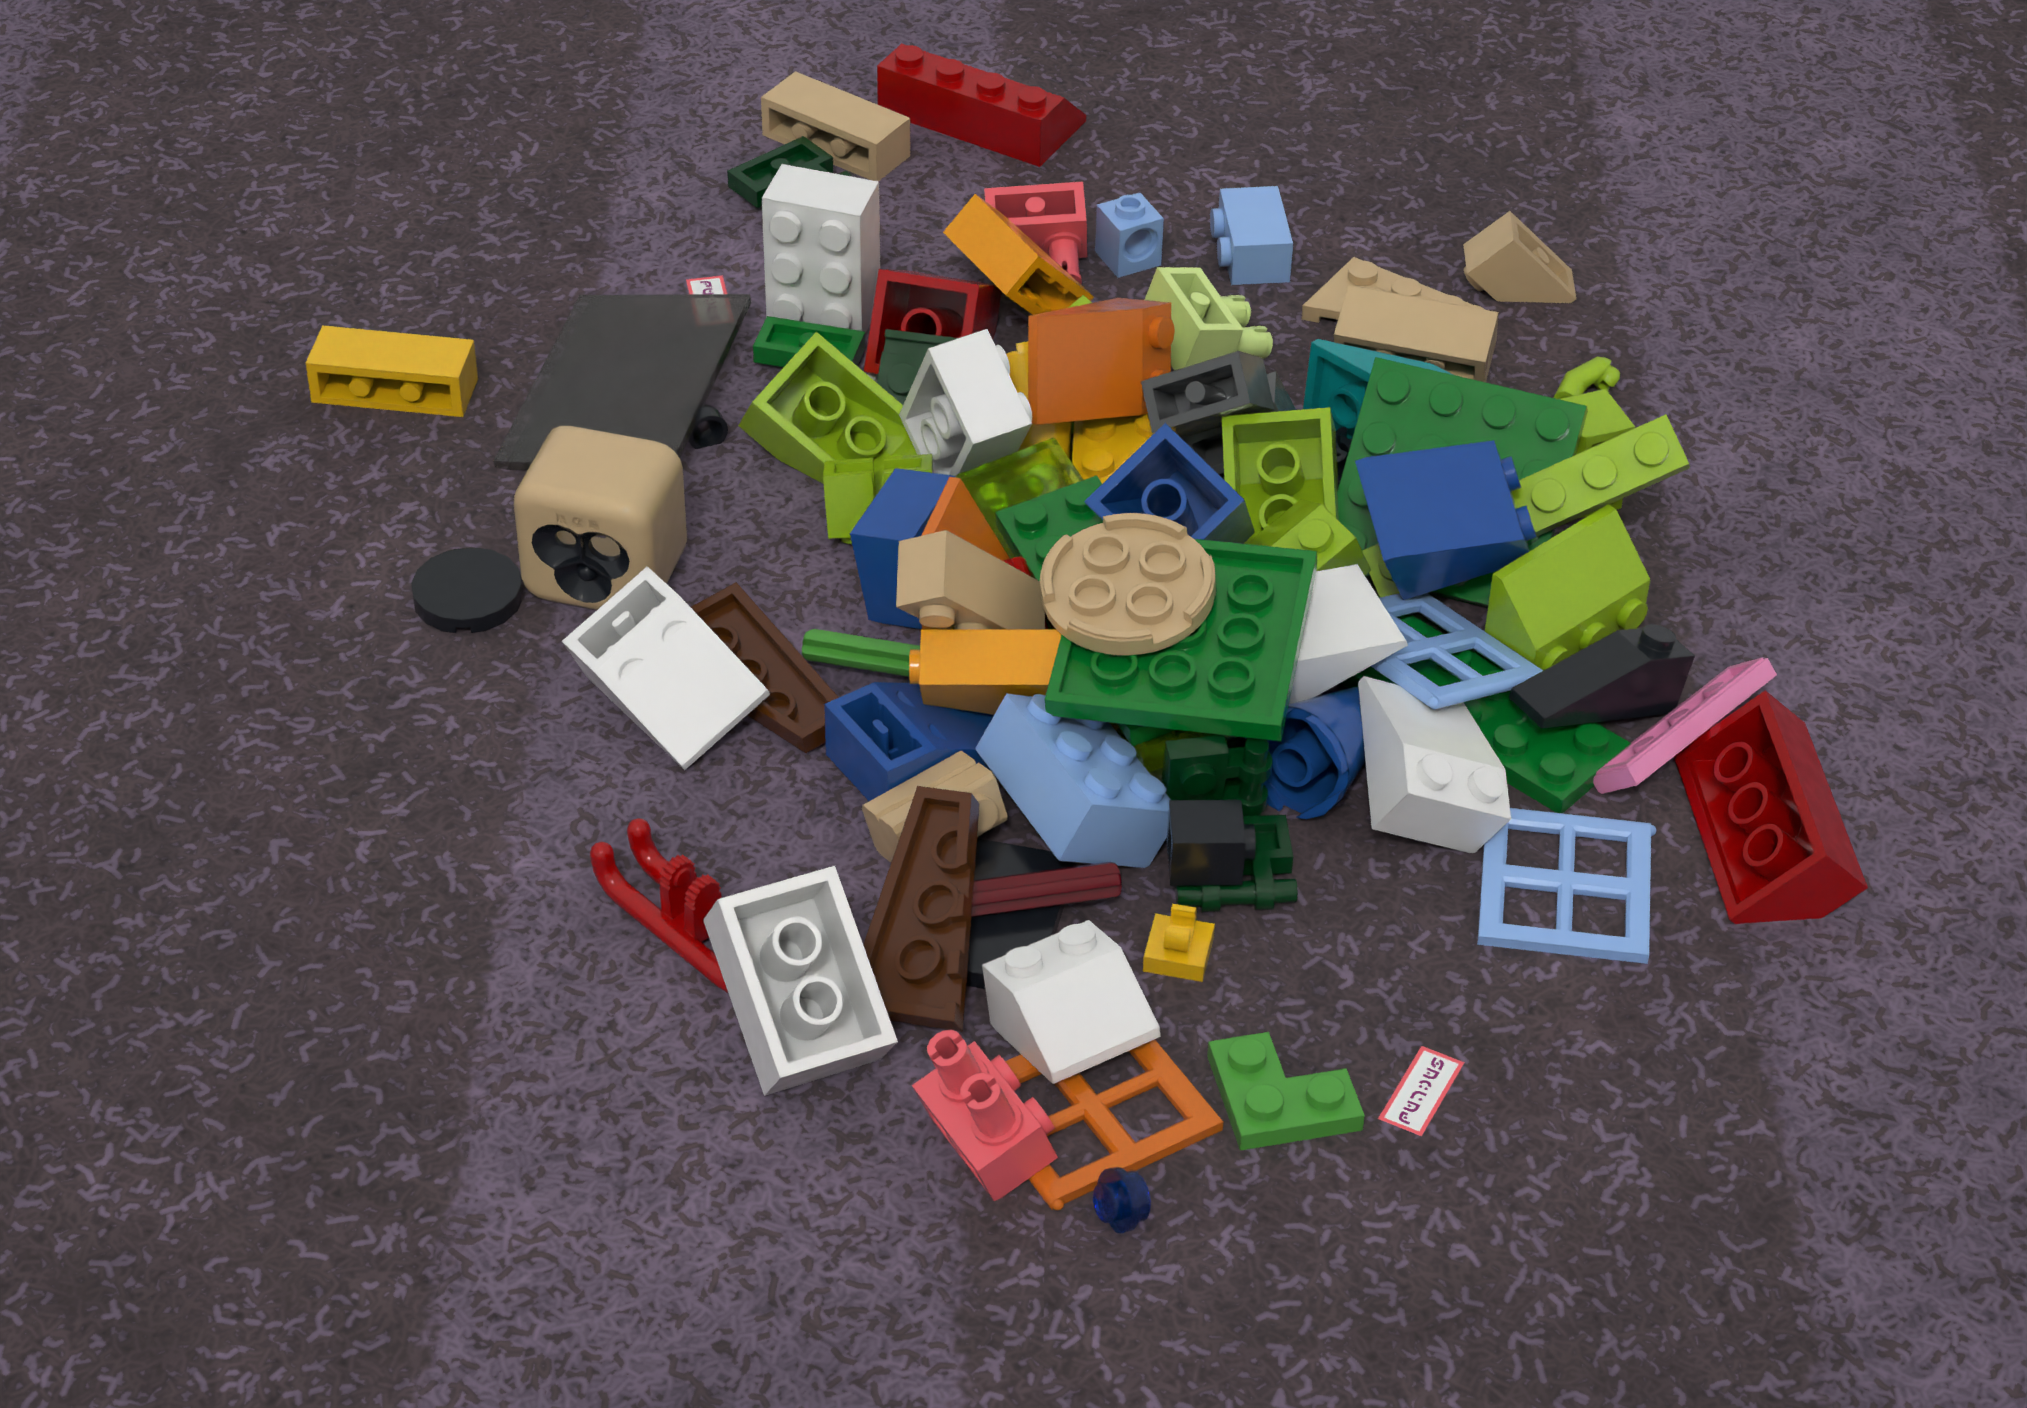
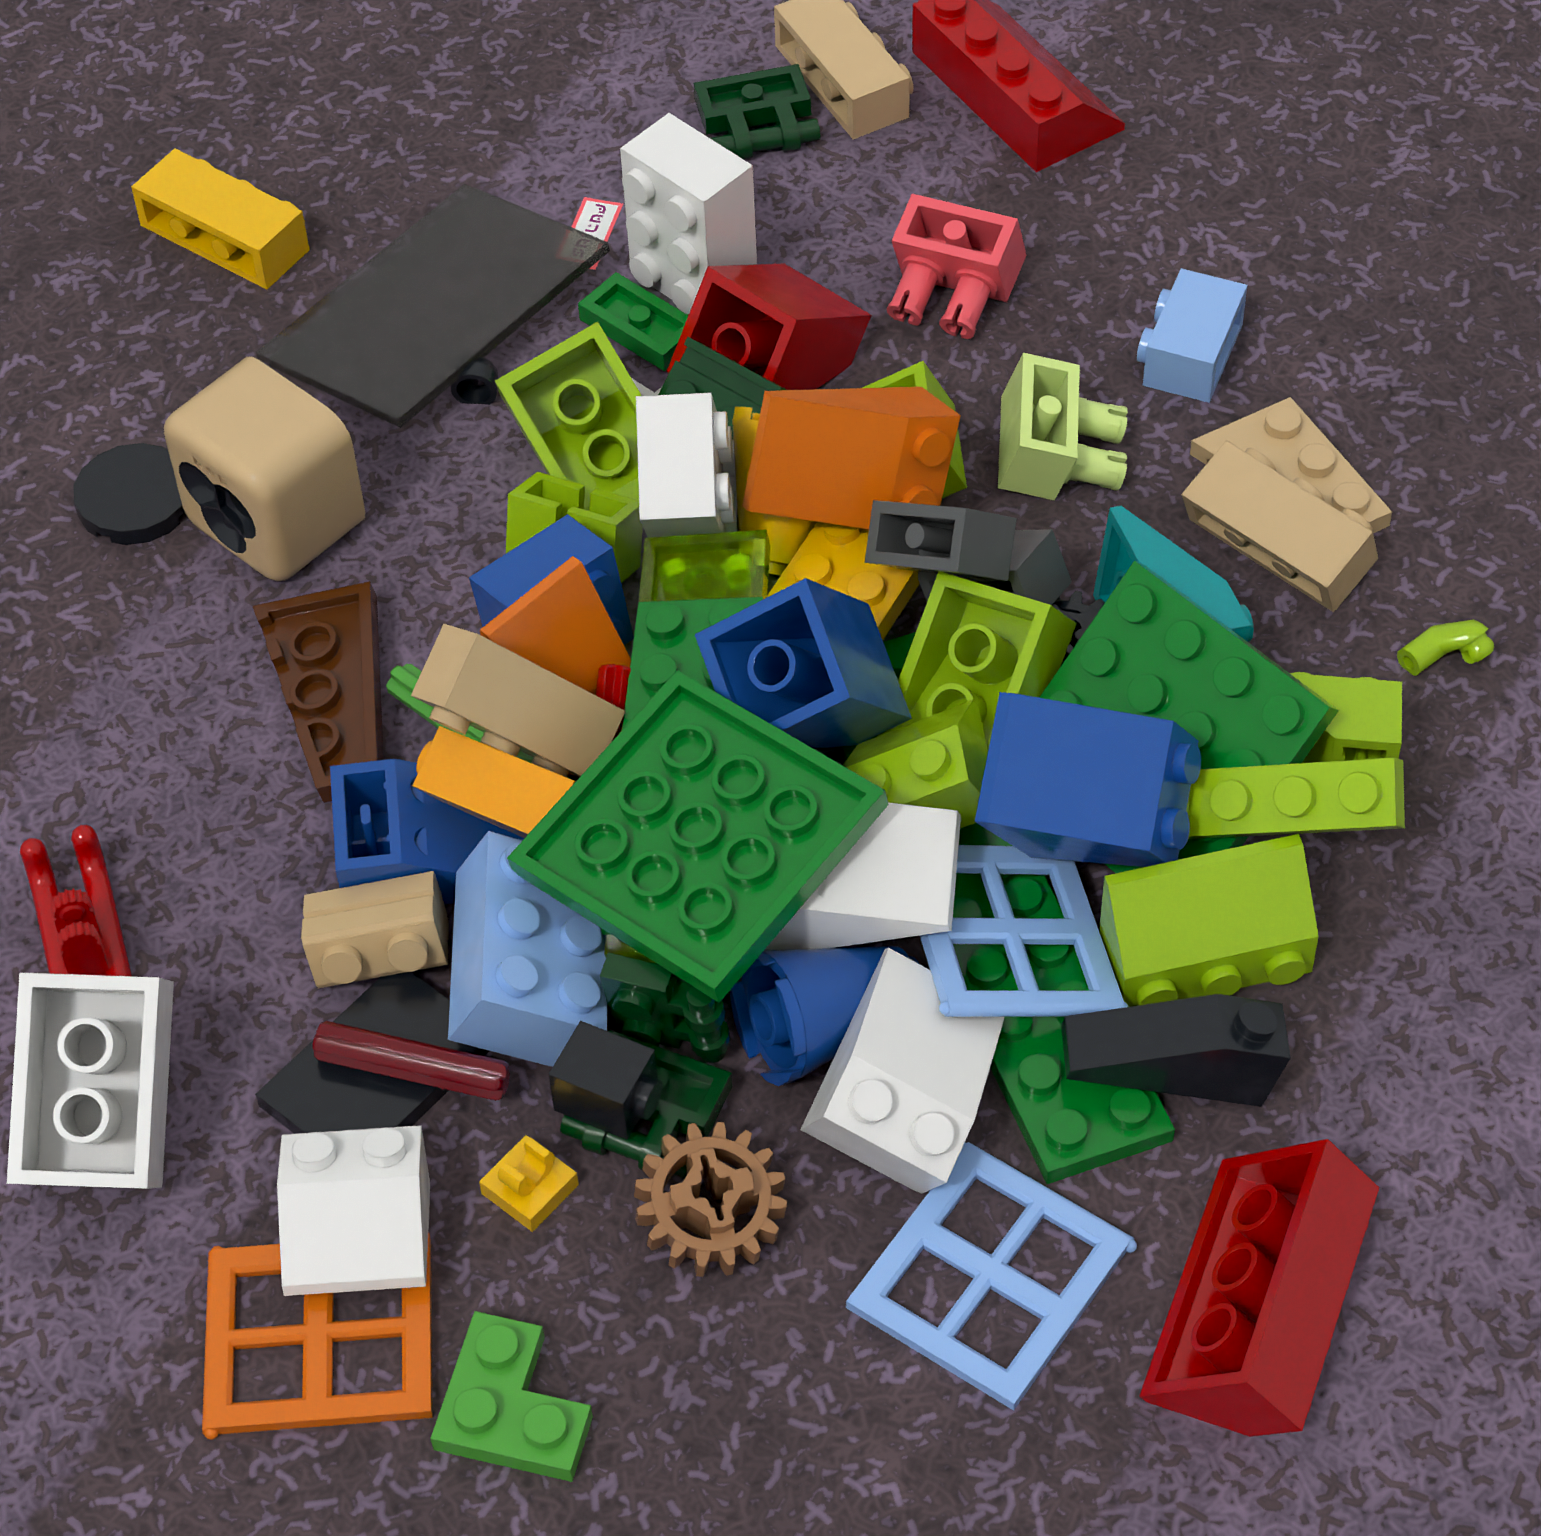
camera: 30 degrees right, 10 degrees up
(665, 668) = (227, 658): white slope -> none
(925, 912) = (261, 1064): reddish brown wing -> none
(983, 1116) = (179, 1307): coral brick -> none
(1012, 259) = (889, 295): light orange slope -> none
(1121, 1199) = (260, 1460): clear blue plate -> none
(1128, 585) = (666, 756): tan tile -> none
(1129, 234) = (1055, 292): light blue brick -> none
(1335, 900) = (684, 1209): none -> medium nougat gear
(1421, 1091) = (665, 1461): white sticker -> none
(1516, 265) = (1466, 470): tan slope -> none
(1683, 725) = (1247, 1131): bright pink tile -> none

